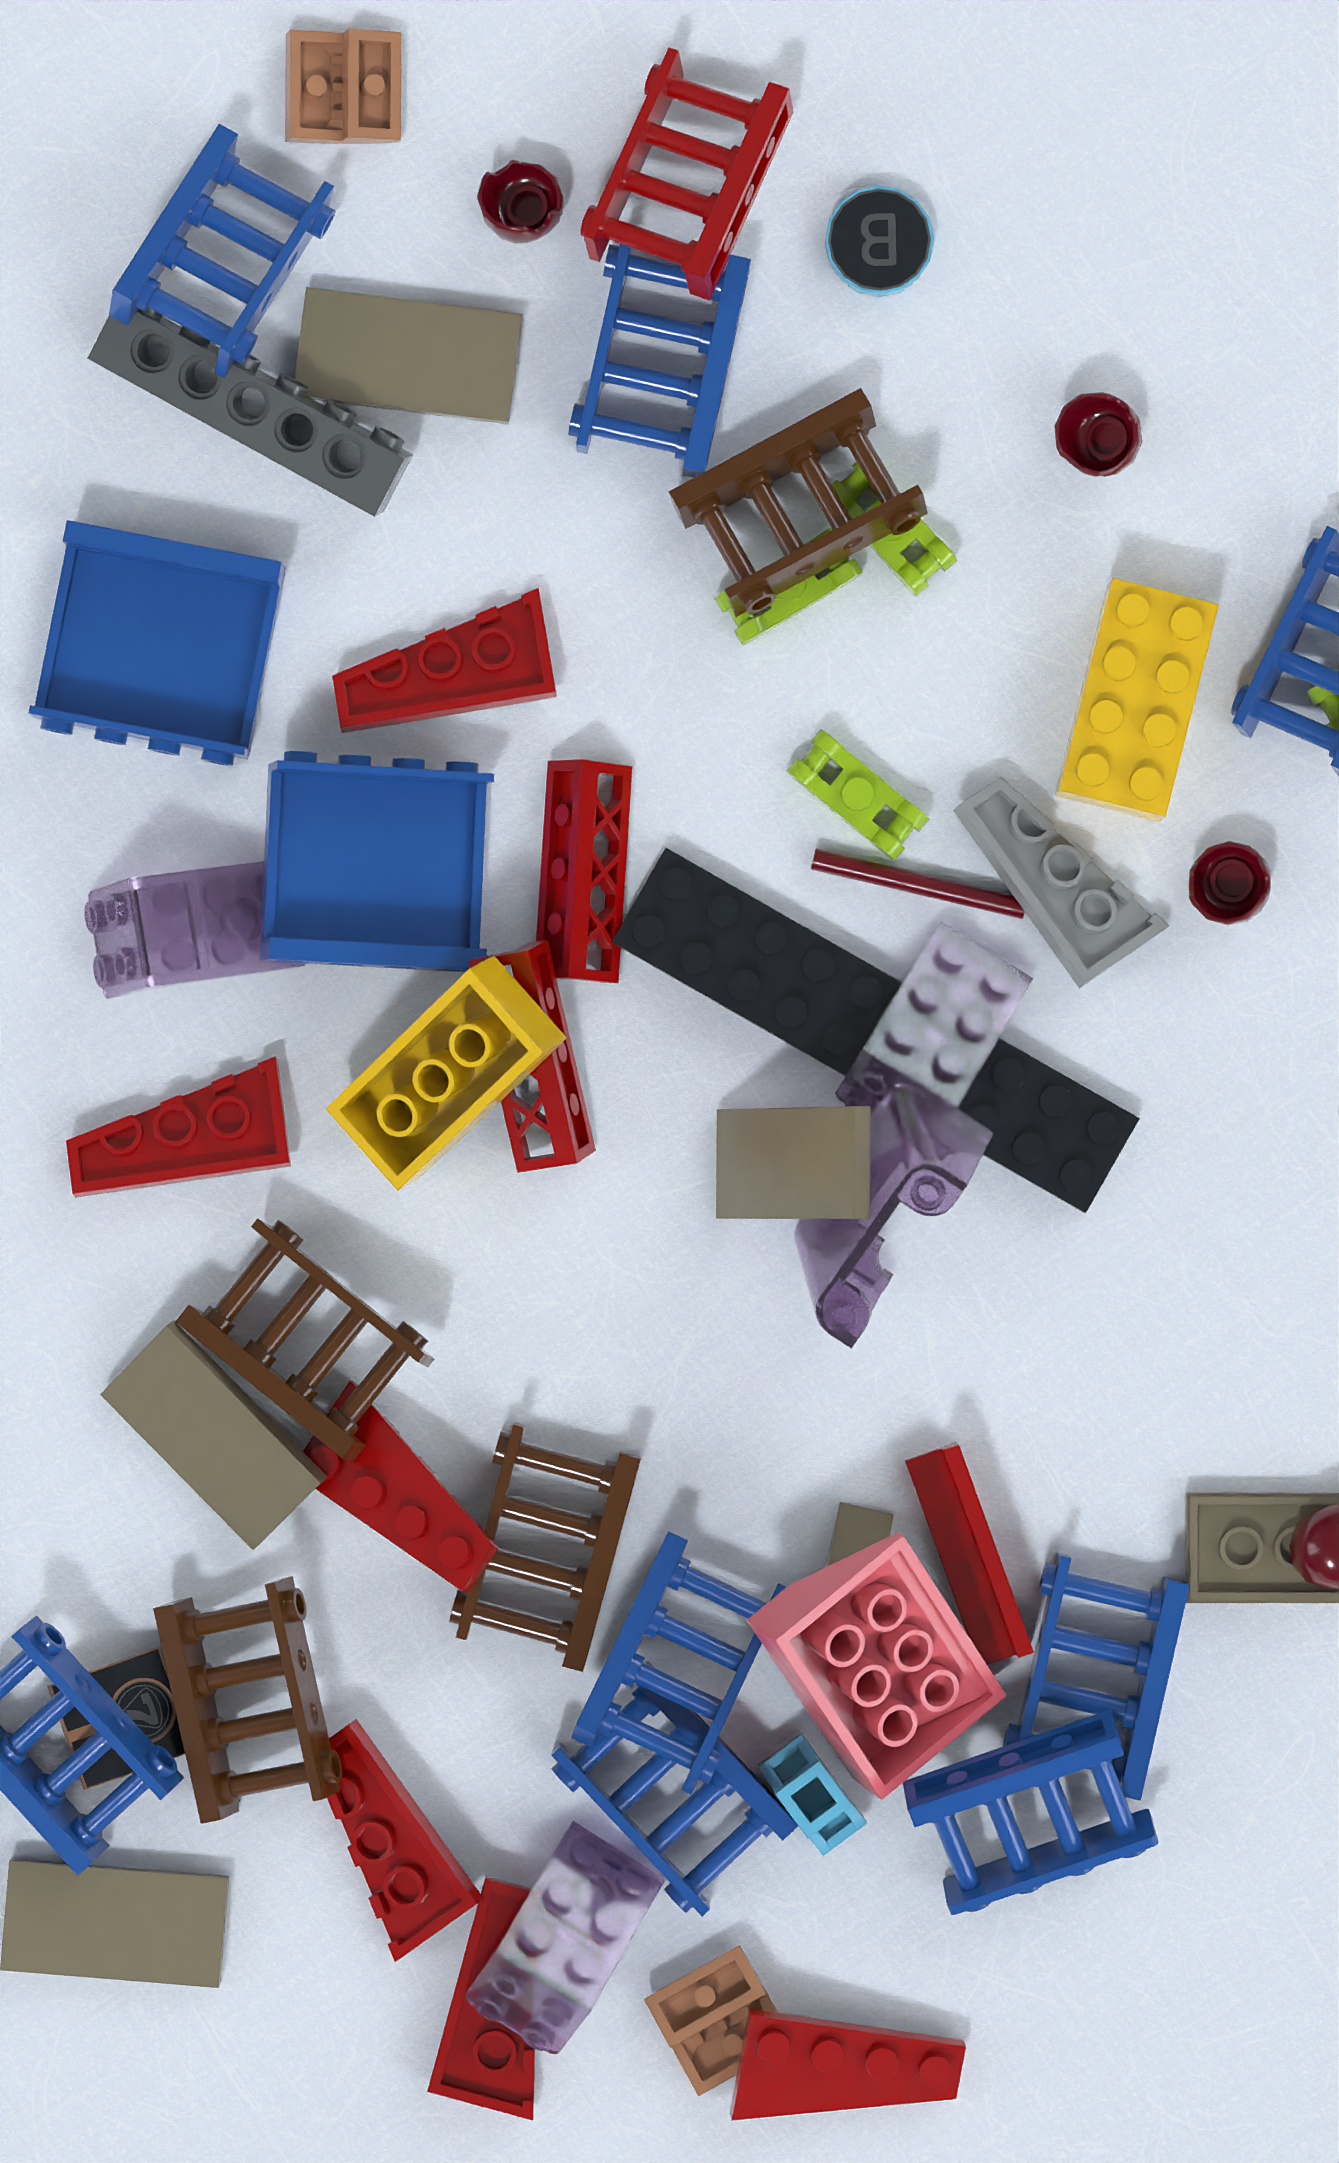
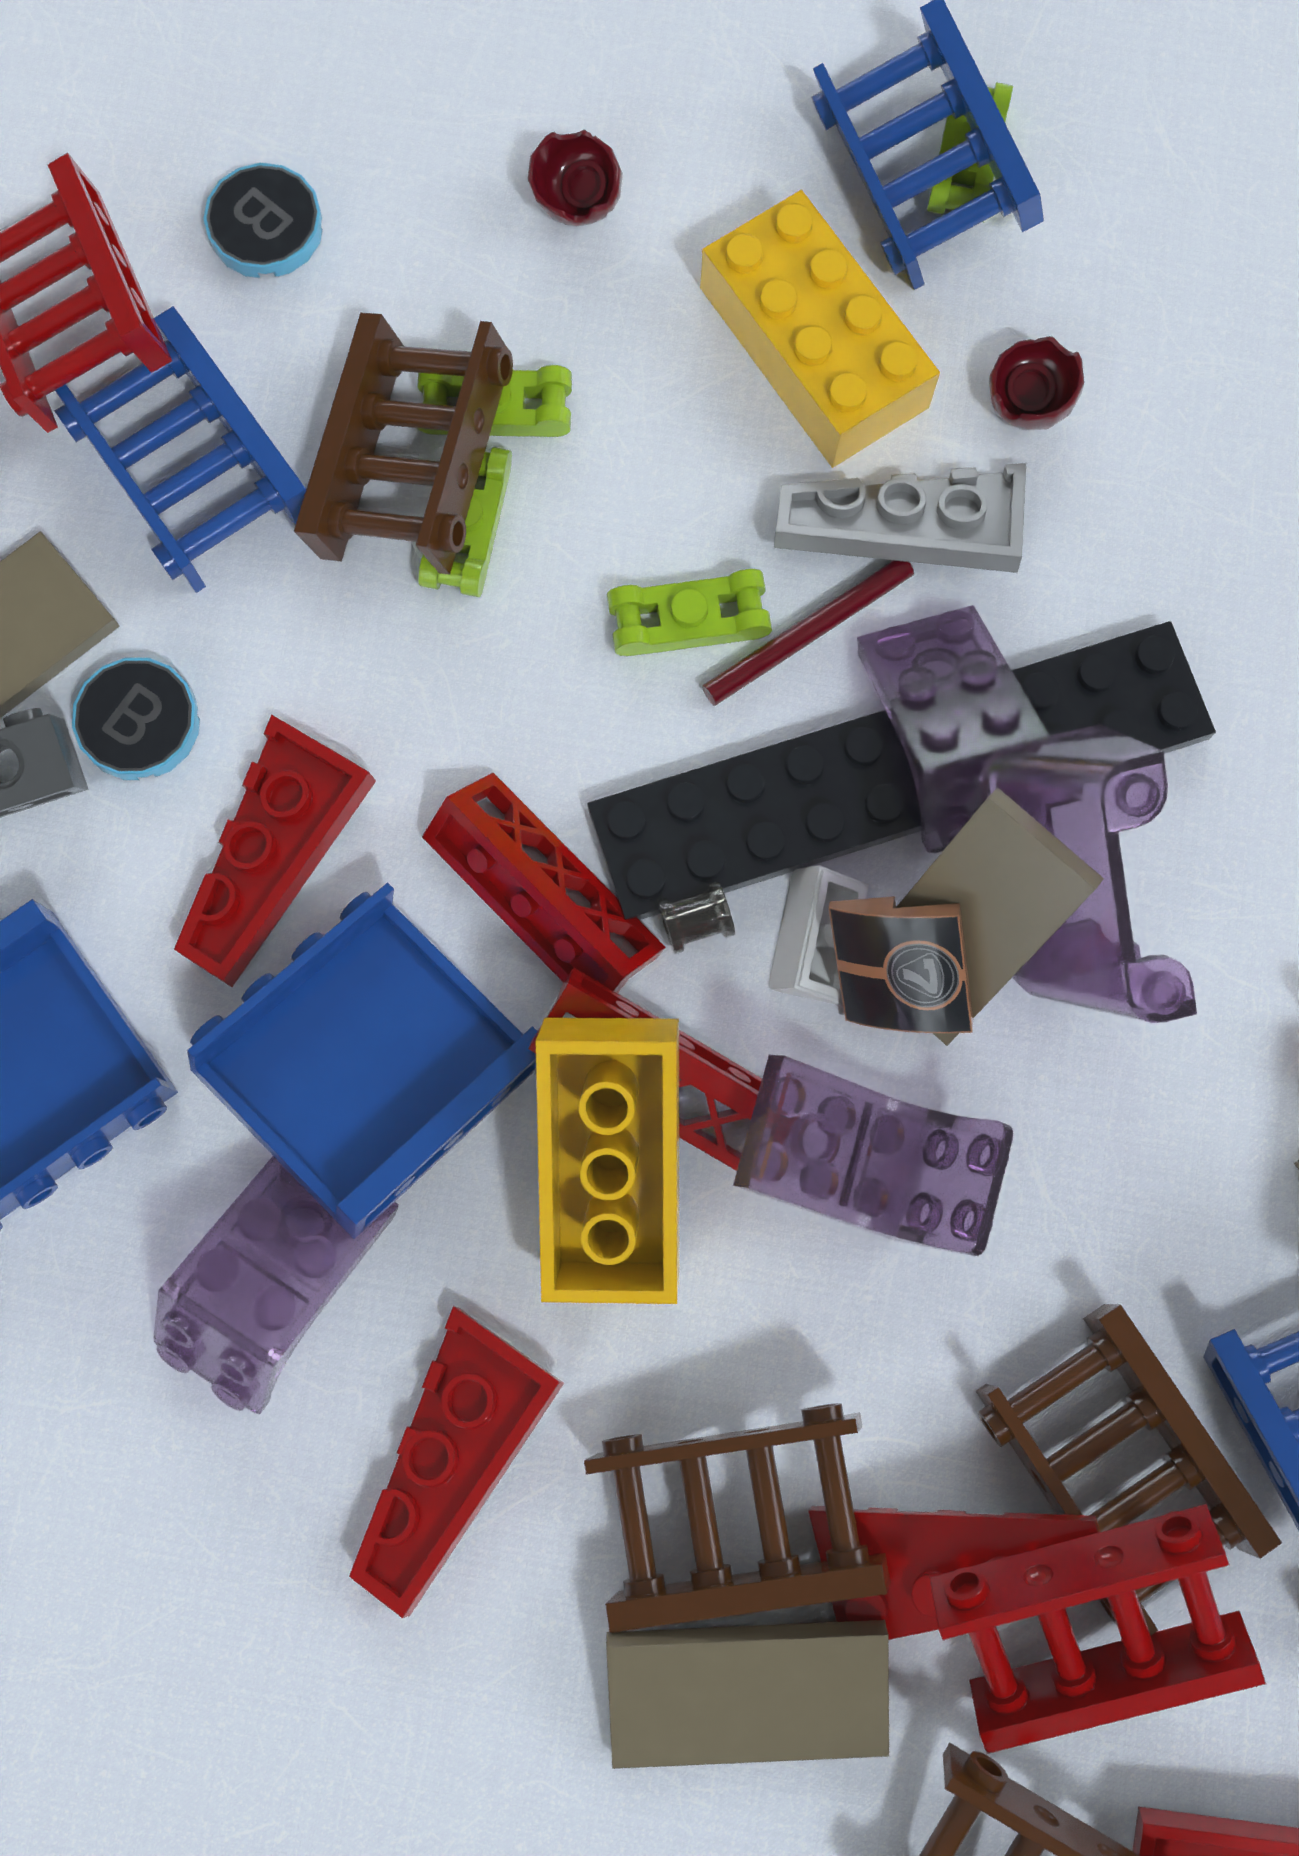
camera: 50 degrees left, 10 degrees down
(406, 1634) = (1110, 1680): none -> red fence
(456, 500) = (136, 718): none -> black tile
(592, 1230) = (873, 1159): none -> clear purple bracket
(652, 986) = (696, 917): none -> clear smoke bush
(715, 1074) = (805, 946): none -> white slope
(731, 1145) = (902, 965): none -> black slope

